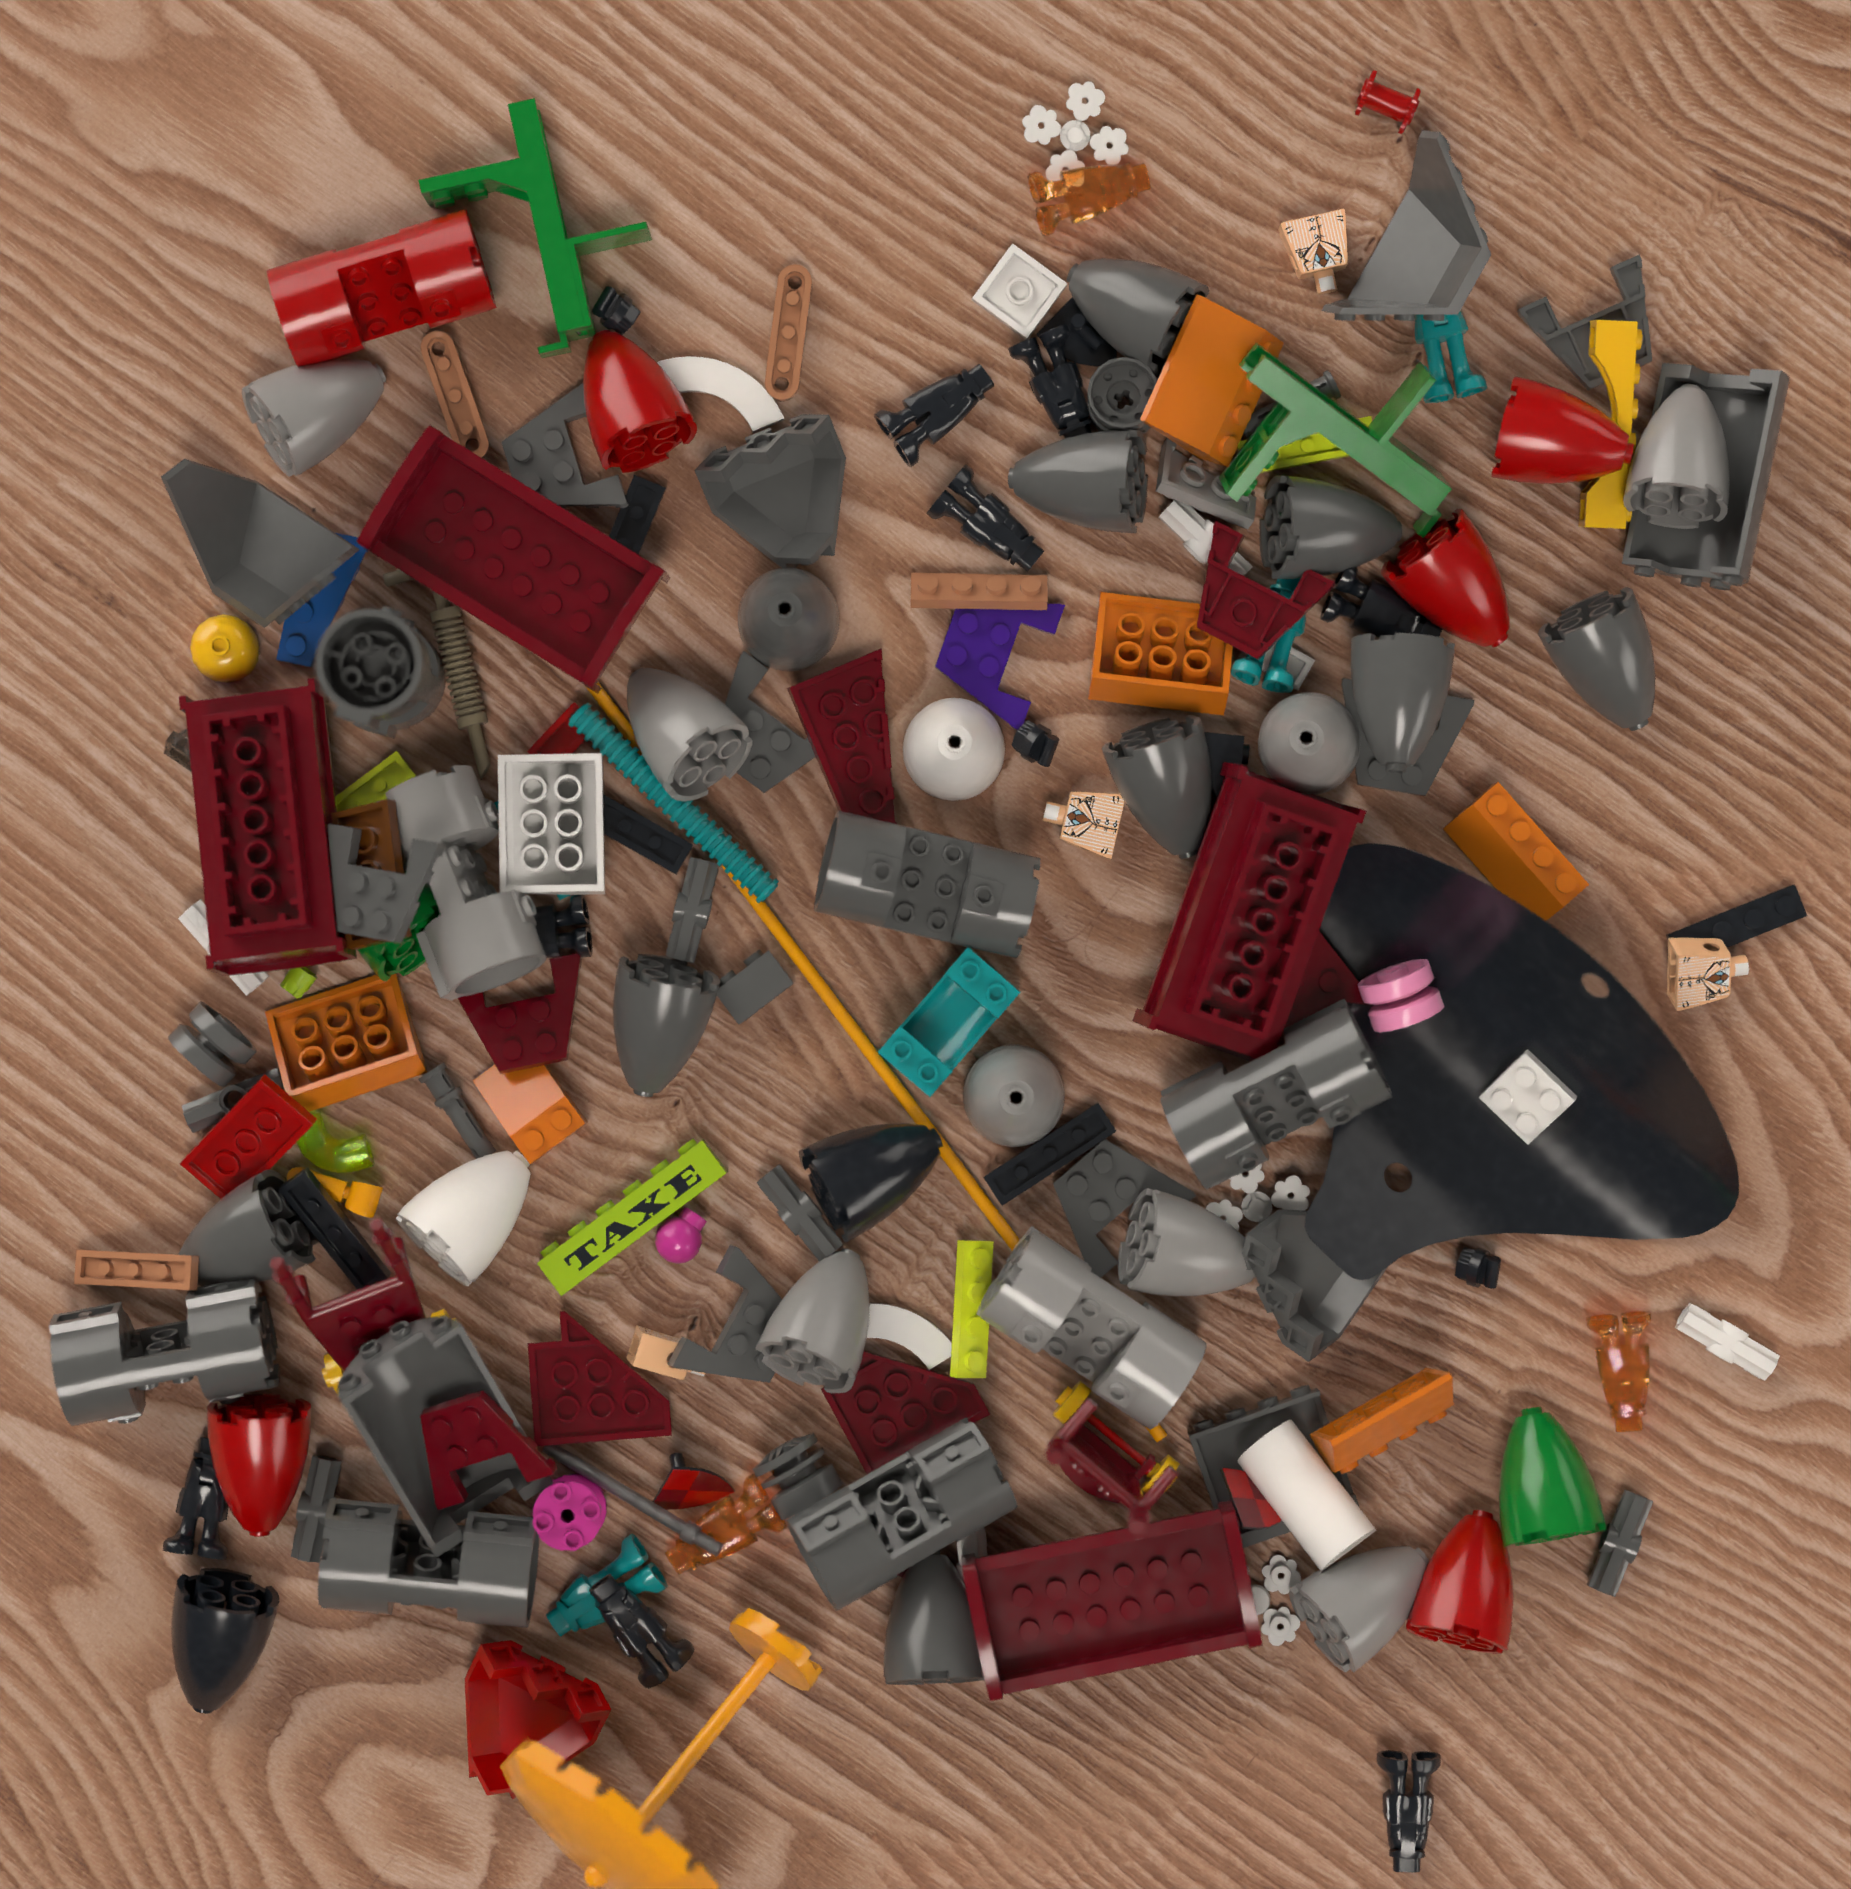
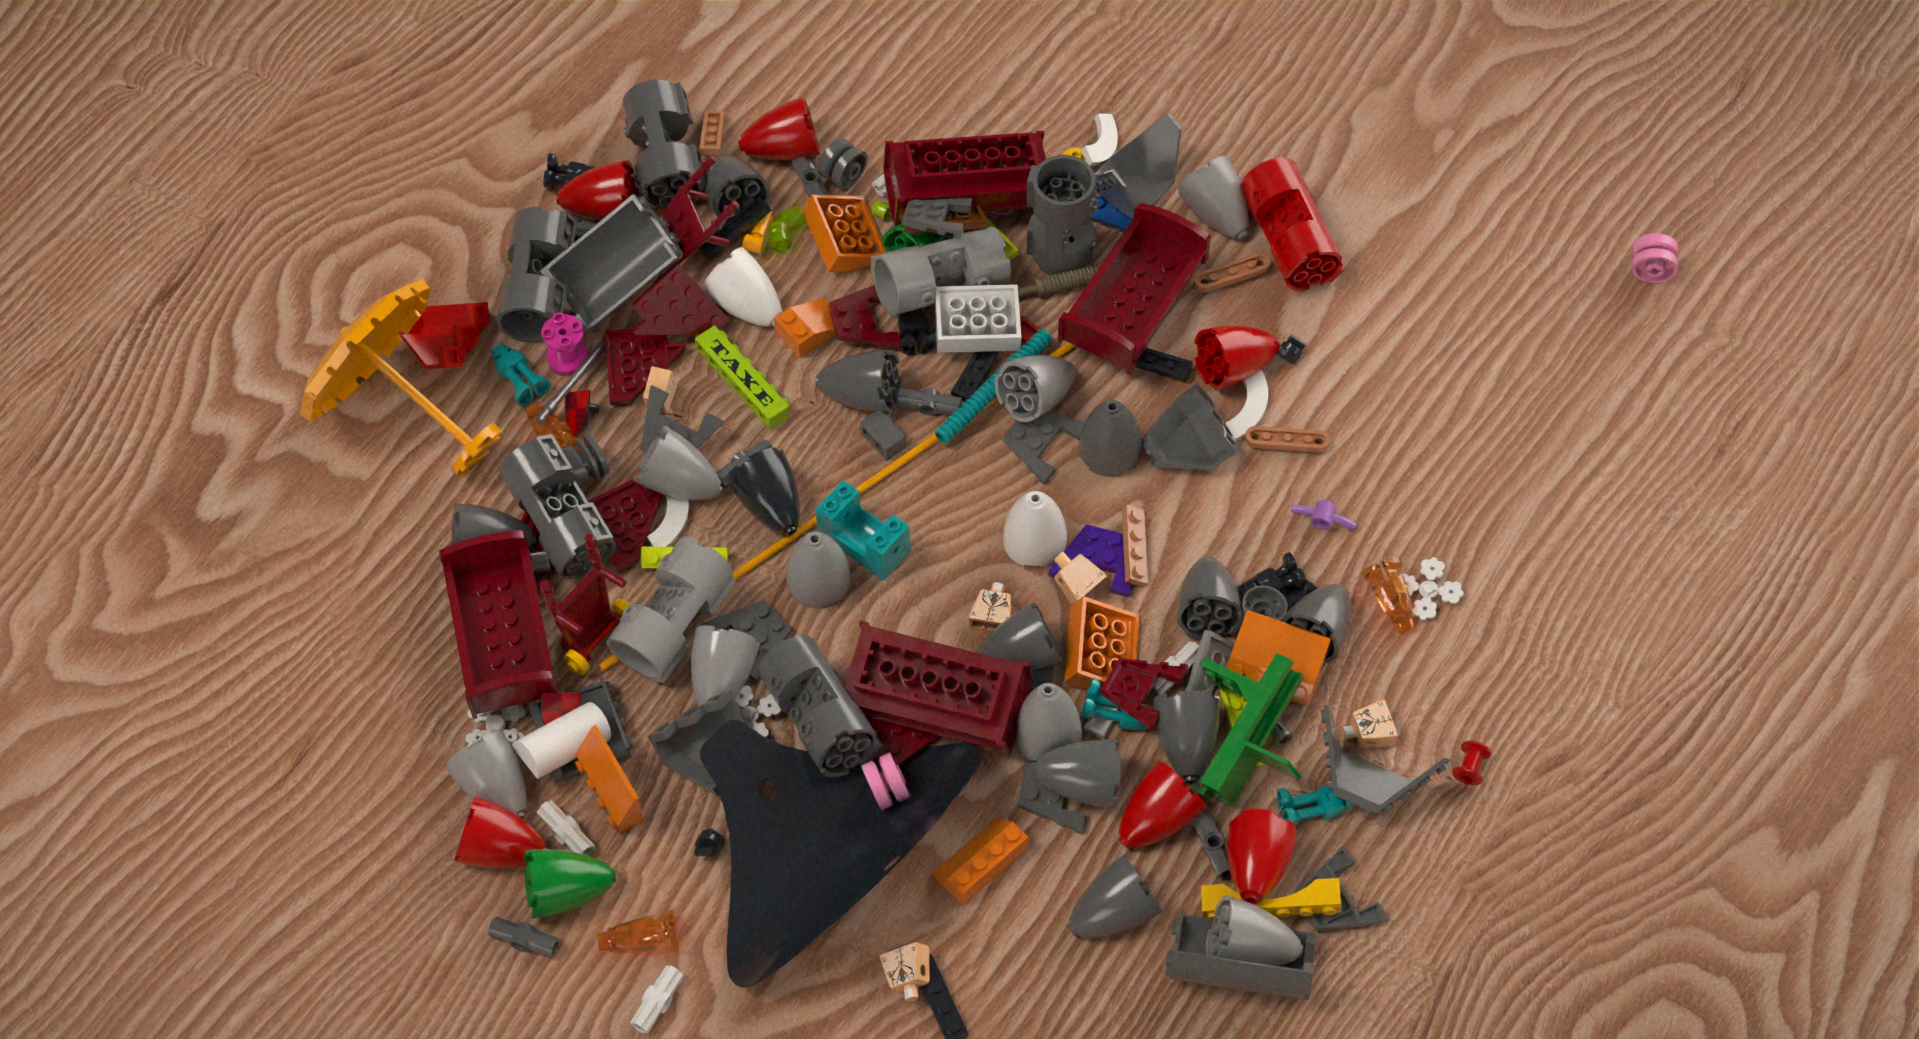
camera: 90 degrees right, 30 degrees down
(144, 1146) = (782, 133): none -> red cylinder
(192, 595) = (1106, 143): none -> white tile
(217, 1645) = (500, 179): black cylinder -> none
(248, 1138) = (790, 181): red plate -> none
(449, 1098) = (813, 284): dark grey pin -> none
(469, 1433) = (611, 280): dark red wing -> none
(512, 1325) = (677, 307): none -> dark red wing
(533, 181) = (1342, 308): green piece -> none
(546, 460) = (1189, 318): dark grey wing -> none
(635, 1627) = (494, 384): black piece -> none
(680, 1237) = (730, 402): dark pink piece -> none
(850, 734) = (1050, 471): dark red wing -> none
(927, 884) = (948, 507): dark grey cylinder -> none
(934, 410) = (1245, 517): black piece -> none
(935, 287) = (1323, 515): none -> medium lavender piece
(990, 524) = (1180, 549): black piece -> none
(1019, 291) = (1325, 561): white plate -> none
(1035, 743) = (1040, 579): black piece -> none
(1040, 685) = (1077, 576): none -> light nougat torso
(1049, 1154) = (781, 597): black plate -> none
(1380, 611) = (1136, 765): black piece -> none
(1411, 1811) = (356, 815): black piece -> none
(1445, 1484) = (565, 828): none -> white piece
(1527, 1097) = (821, 868): white plate -> none
(1528, 497) = (1208, 834): none -> dark grey piece

